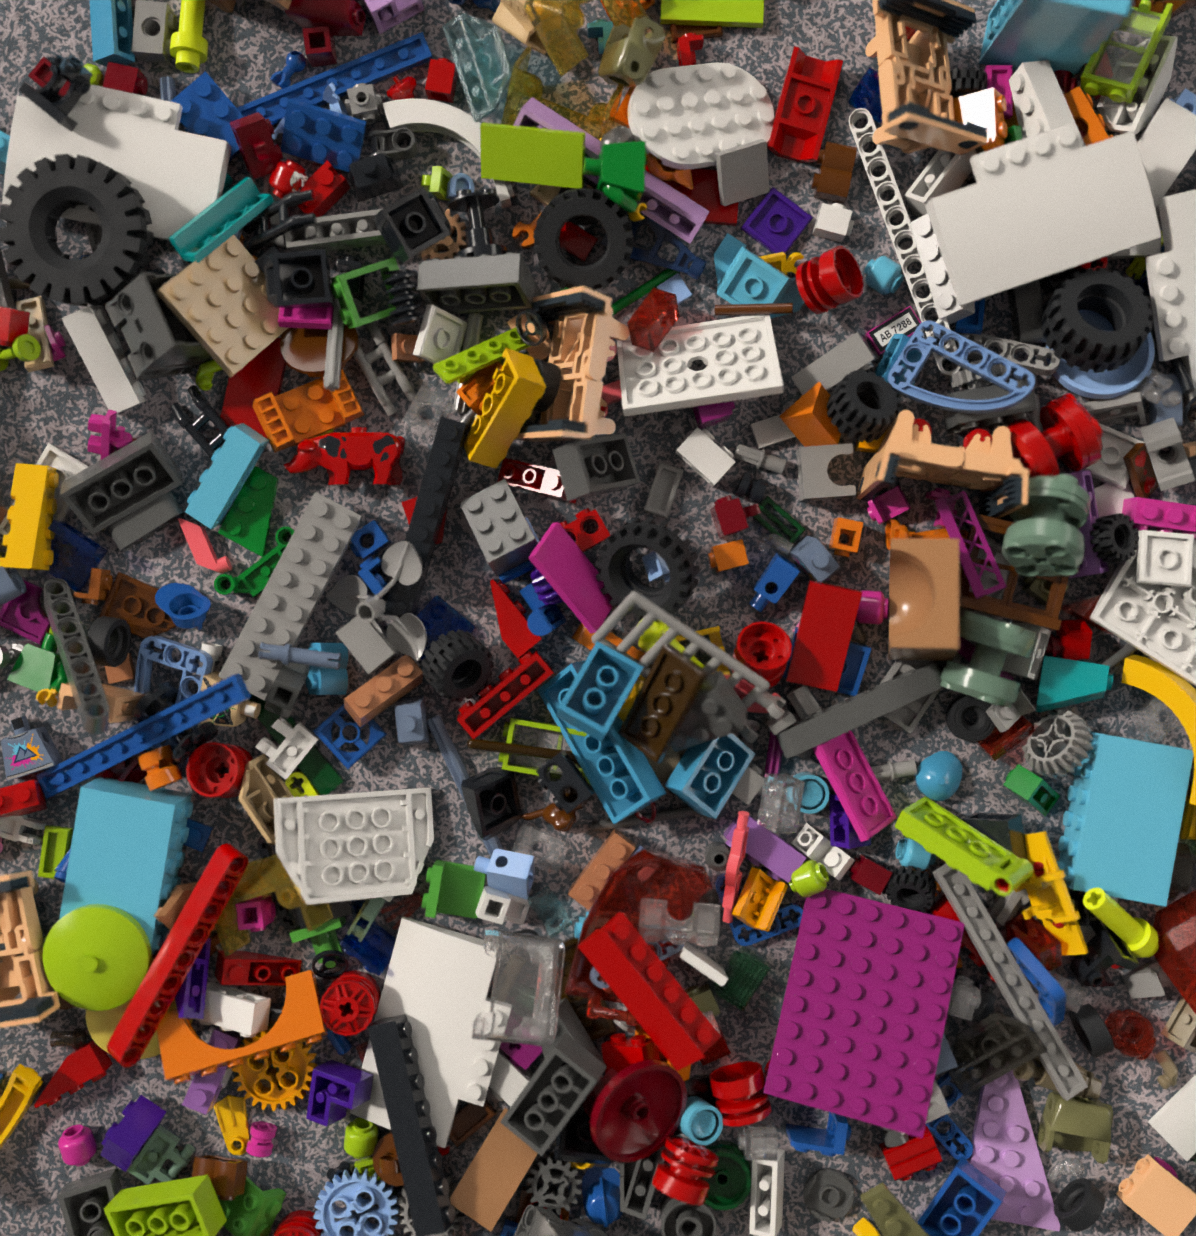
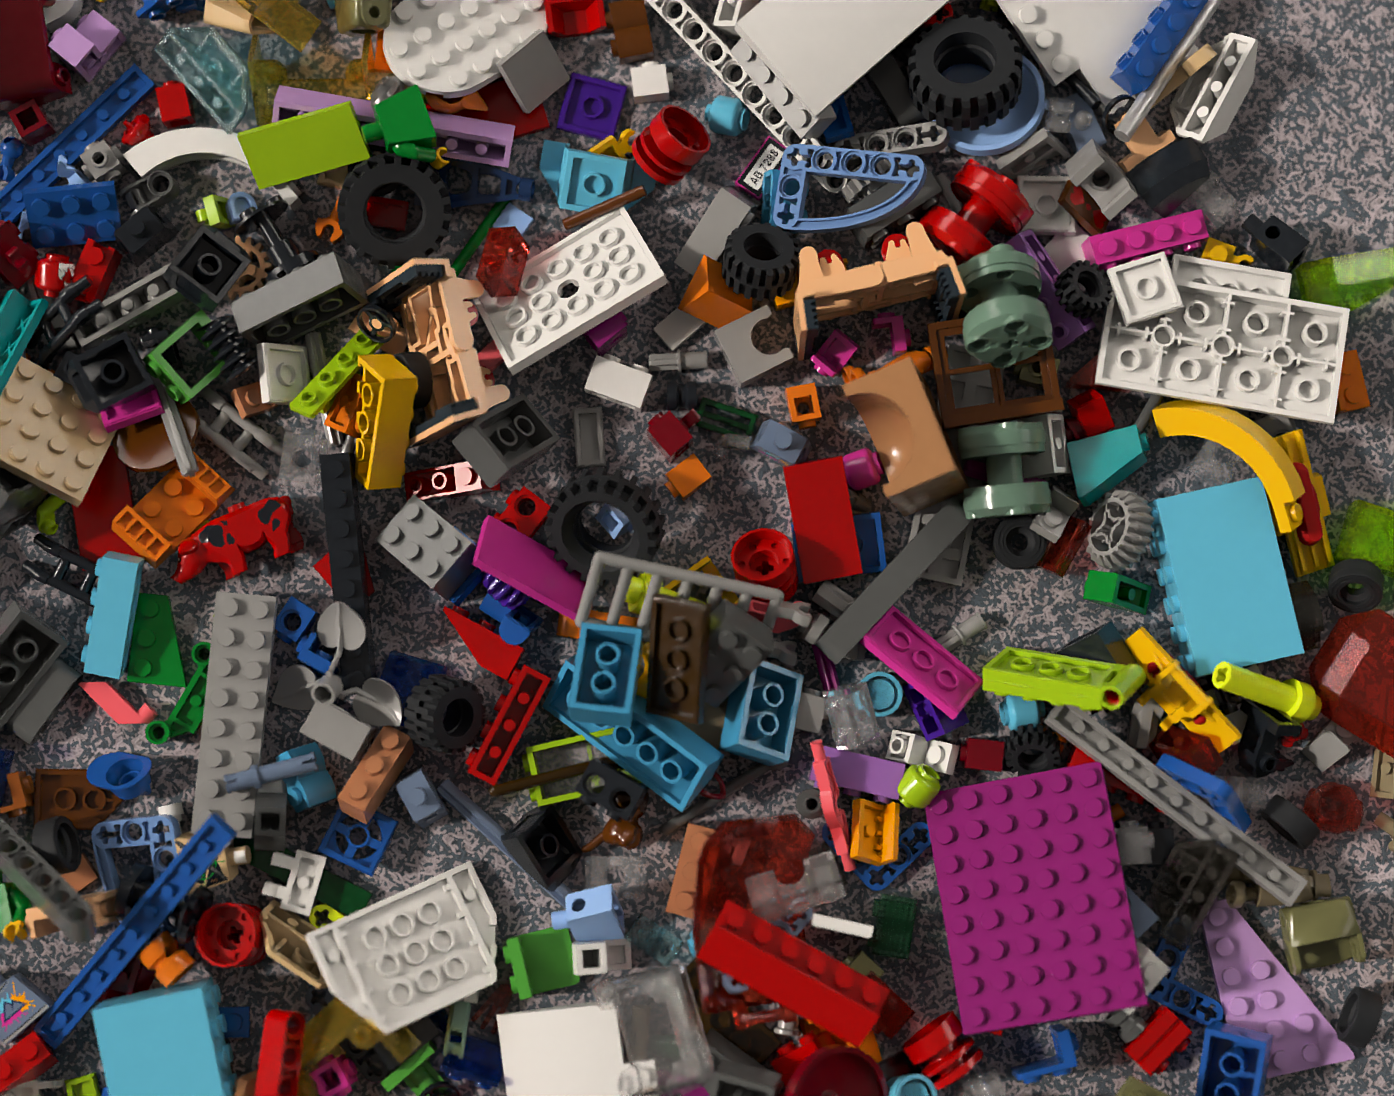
camera: 25 degrees left, 5 degrees down
(778, 571) = (748, 471): blue torso -> none
(939, 775) = (1012, 618): dark azure hat -> none
(964, 555) = (931, 372): magenta fence -> none
(1064, 1166) = (1331, 984): clear arm -> none

